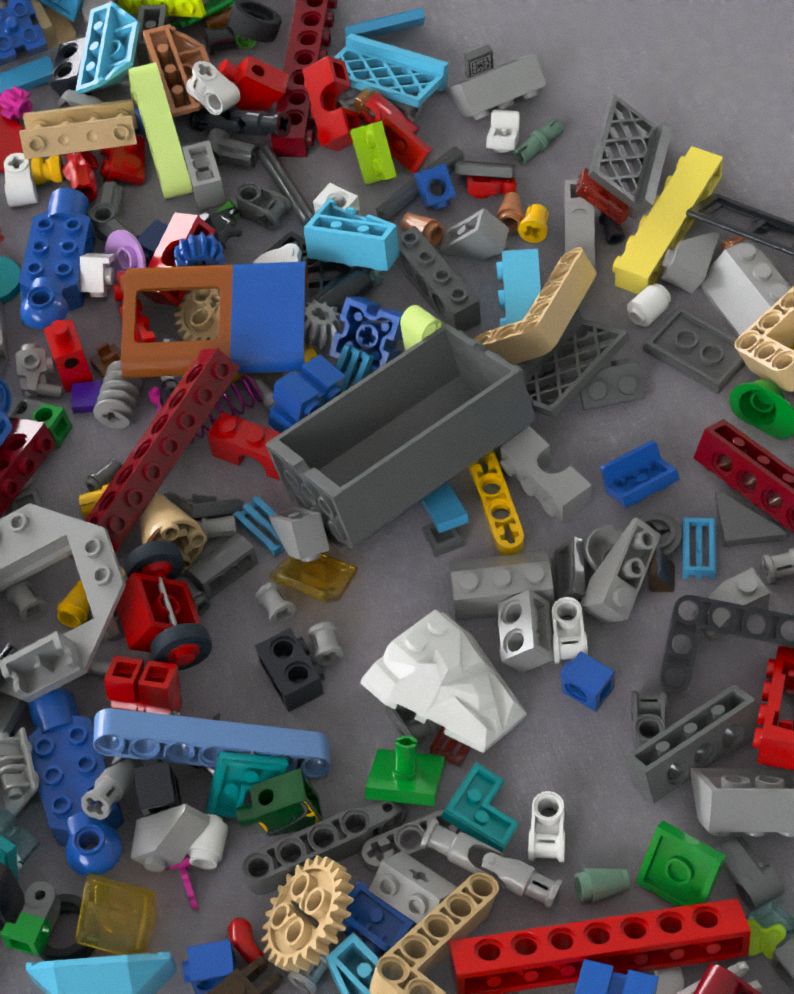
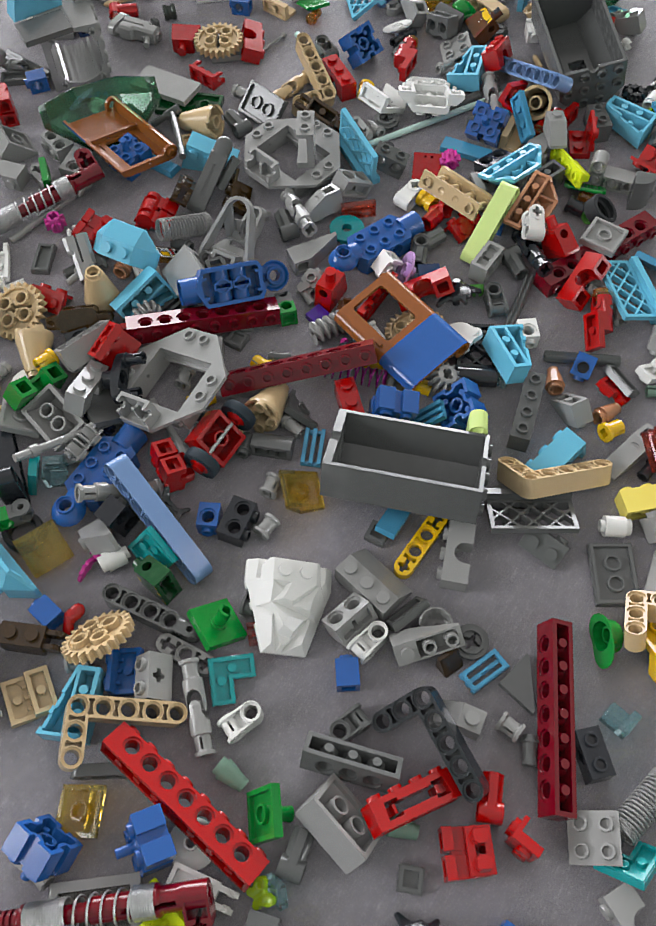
camera: 45 degrees right, 5 degrees up
(199, 251) = (432, 295): blue gear -> none
(255, 686) = (205, 511): none -> blue brick
(295, 42) = (603, 237): none -> light grey tile
(301, 533) = (311, 469): light grey slope -> none
(373, 153) = (573, 322): lime bracket -> none
(637, 474) = (499, 603): blue bracket -> none

